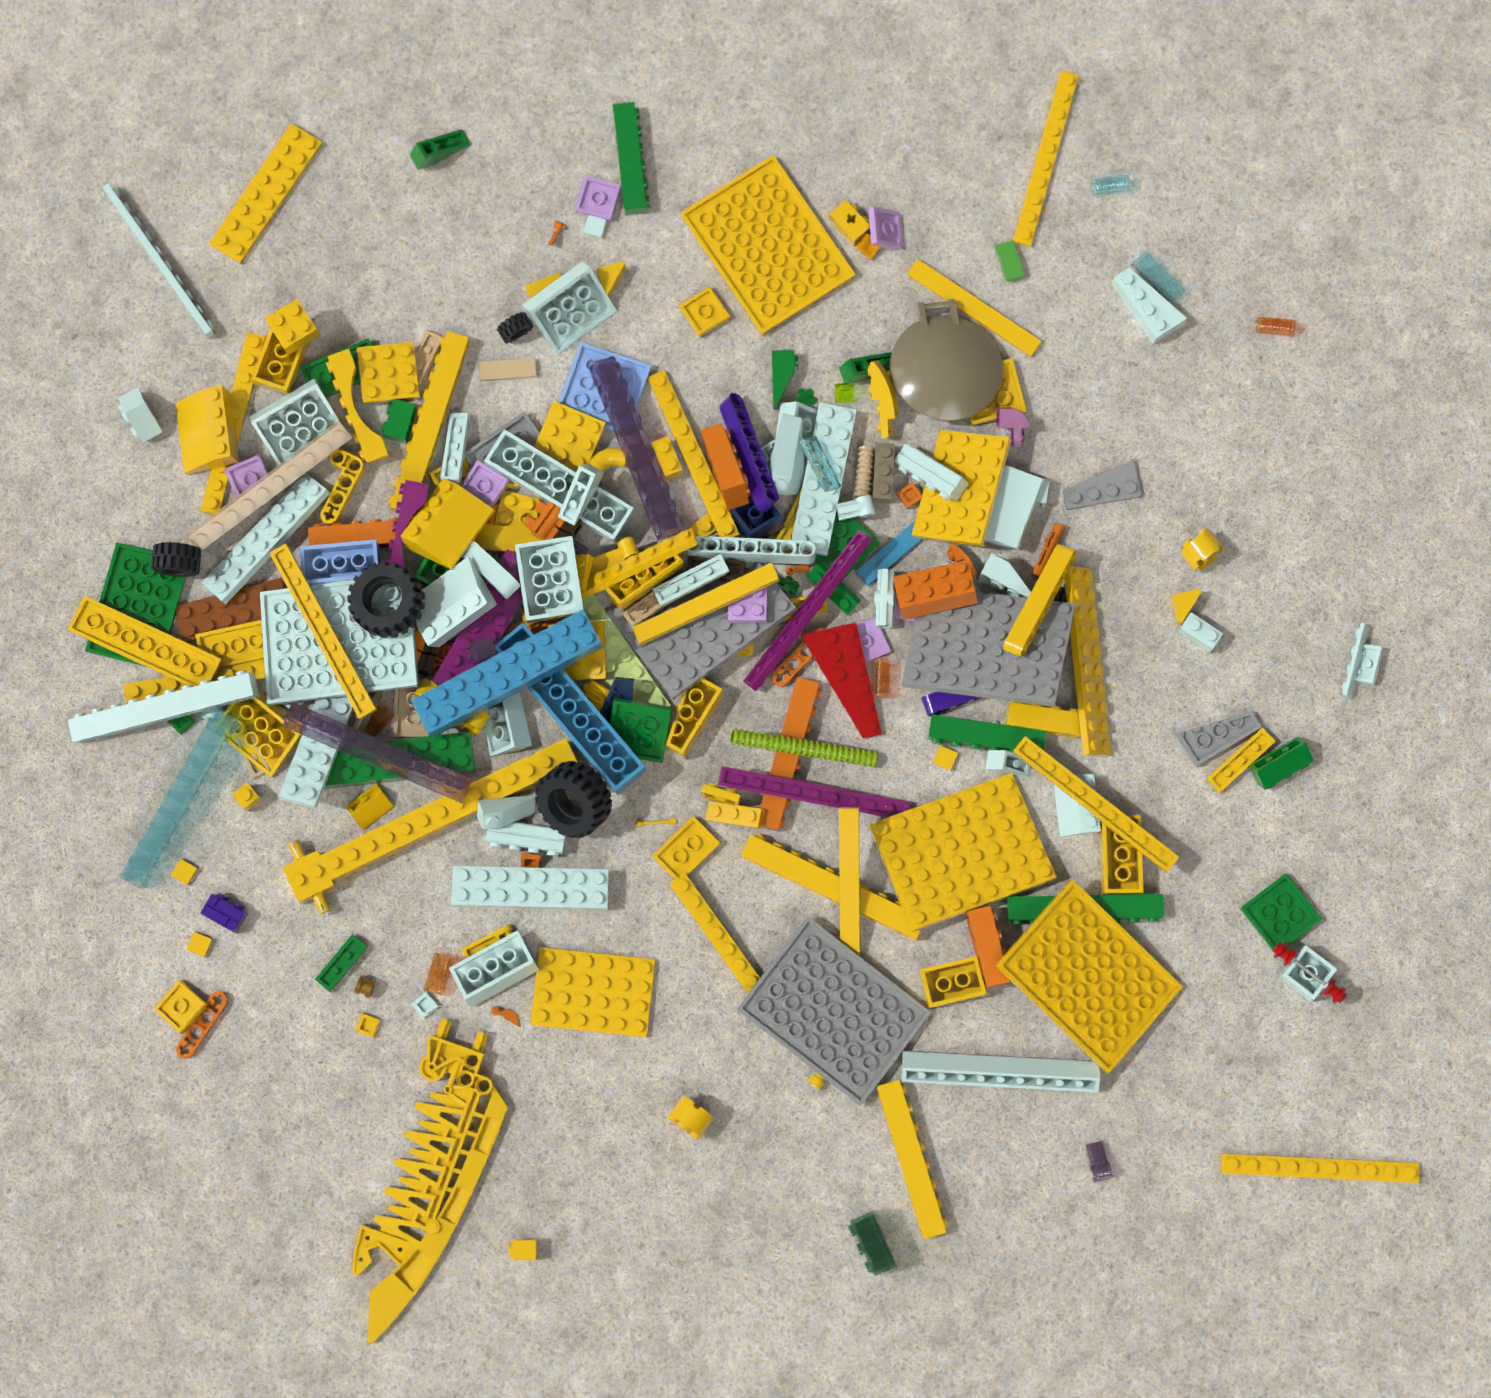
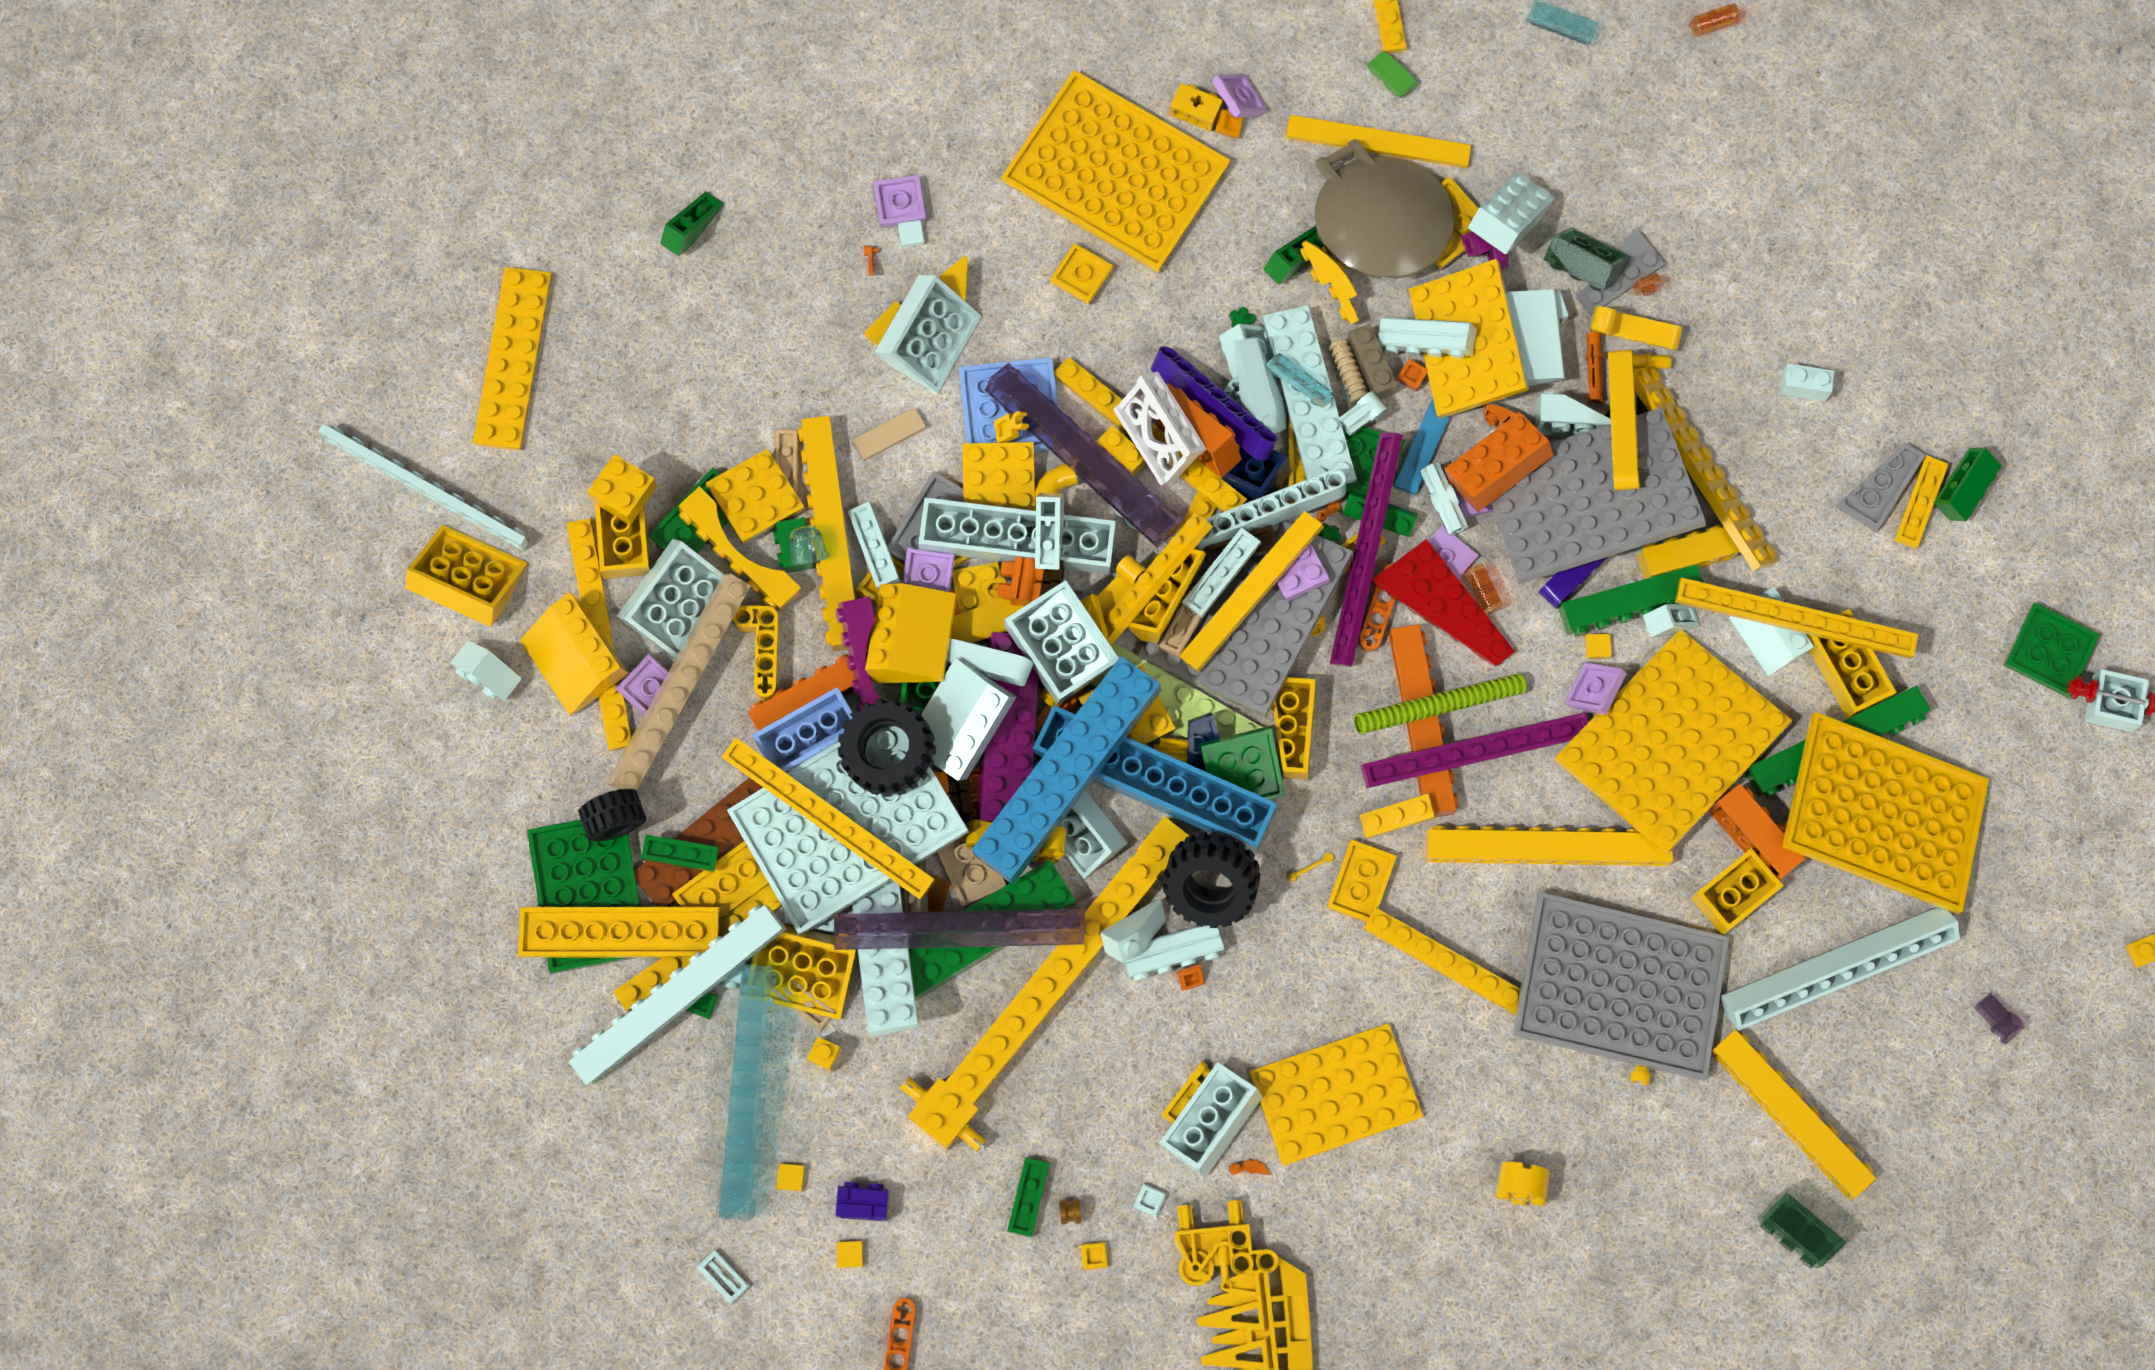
camera: 30 degrees left, 5 degrees down
(117, 930) = (738, 1292): none -> light aqua tile
(158, 338) = (465, 575): none -> yellow slope
(180, 1006) = (863, 1338): yellow plate -> none
(213, 608) = (680, 853): none -> green plate
(265, 537) = (702, 747): light aqua plate -> none
(369, 806) = (972, 1000): yellow panel -> none
(405, 426) = (807, 545): none -> clear light blue hair
(438, 974) = (1149, 1156): clear orange brick -> none
(481, 650) = (1023, 758): clear purple brick -> none
(514, 327) = (877, 382): black tyre -> none
(530, 888) = (1206, 1007): light aqua brick -> none
(593, 403) = (1008, 426): none -> yellow plate
(630, 158) = (915, 142): green brick -> none
(697, 431) = (1178, 430): none -> white fence
(713, 792) = (1365, 801): yellow plate -> none
(782, 372) = (1201, 298): green slope -> none
(844, 392) = (1282, 294): clear neon green tile -> none
(849, 877) = (1567, 824): yellow tile -> none
(924, 788) = (1595, 688): none -> lavender plate
(1040, 407) = (1511, 212): none -> light aqua brick
(1082, 465) = (1586, 258): none -> clear green slope
(1091, 563) = (1652, 361): none -> yellow axle
(1092, 535) = (1635, 328): none -> yellow beam
(1118, 506) = (1646, 285): none -> clear orange plate
(1148, 307) = (1566, 56): light aqua wedge -> none
(1183, 603) = (1771, 360): yellow slope -> none
(1202, 550) = (1763, 291): yellow brick -> none
(1364, 662) = (1998, 336): light aqua bracket -> none

